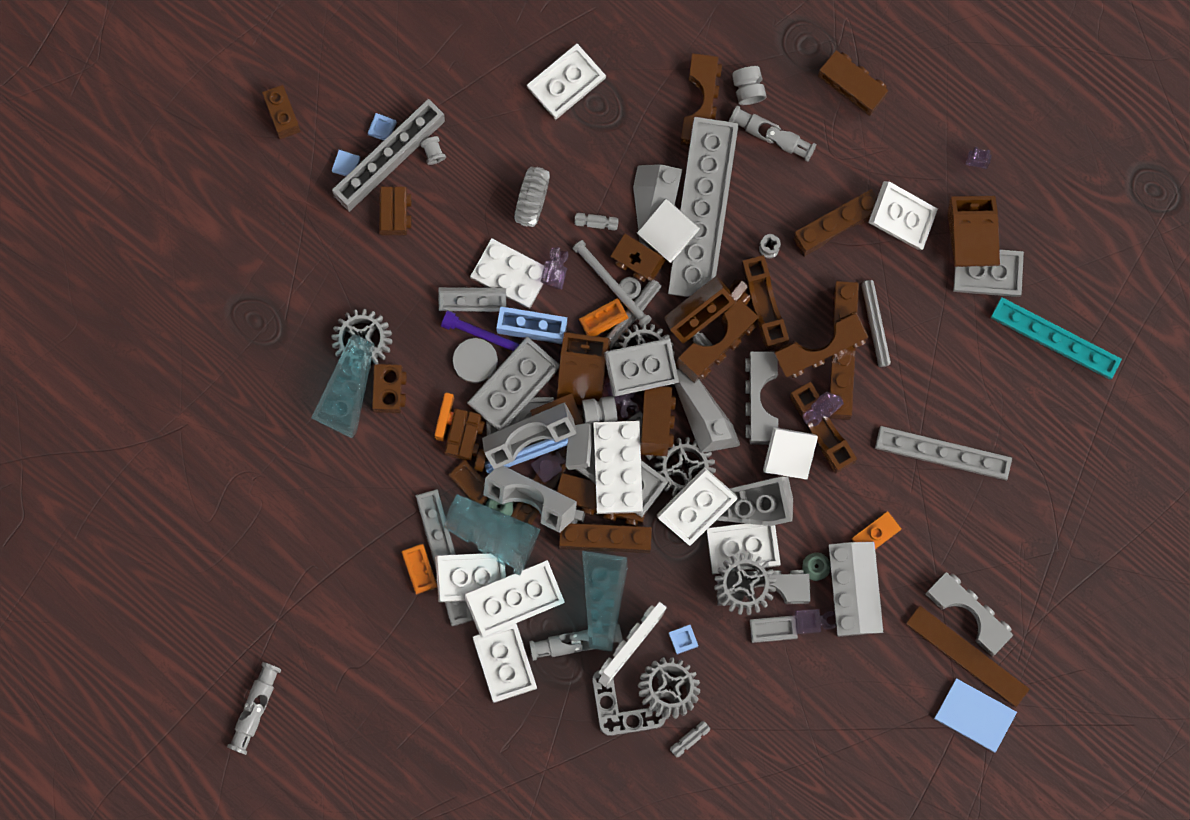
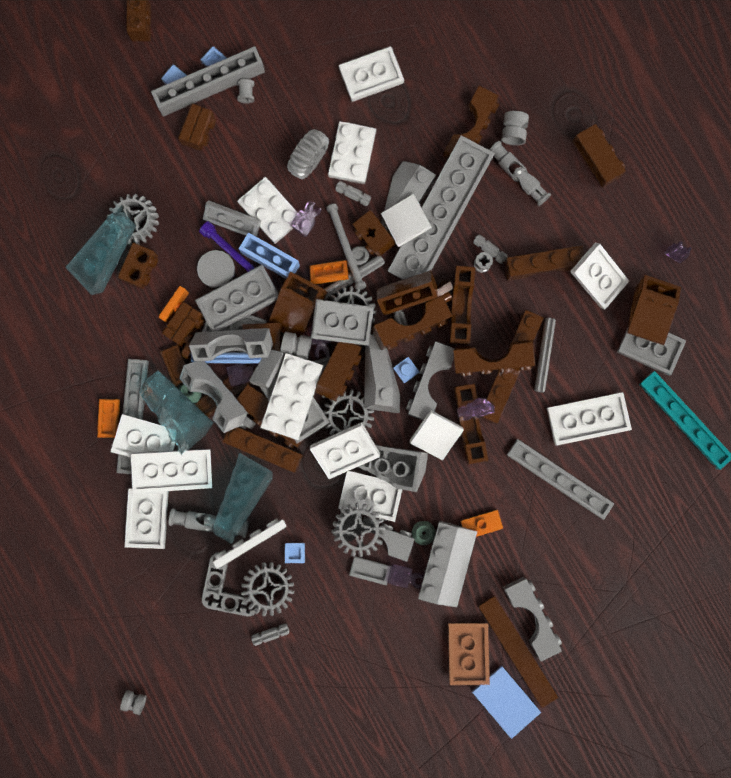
camera: 25 degrees right, 5 degrees up
(577, 176) = (352, 152): none -> white plate
(729, 395) = (406, 370): none -> light blue plate
(771, 228) = (488, 247): none -> light grey axle
(914, 677) = (468, 654): none -> nougat plate
(950, 375) = (589, 419): none -> white plate

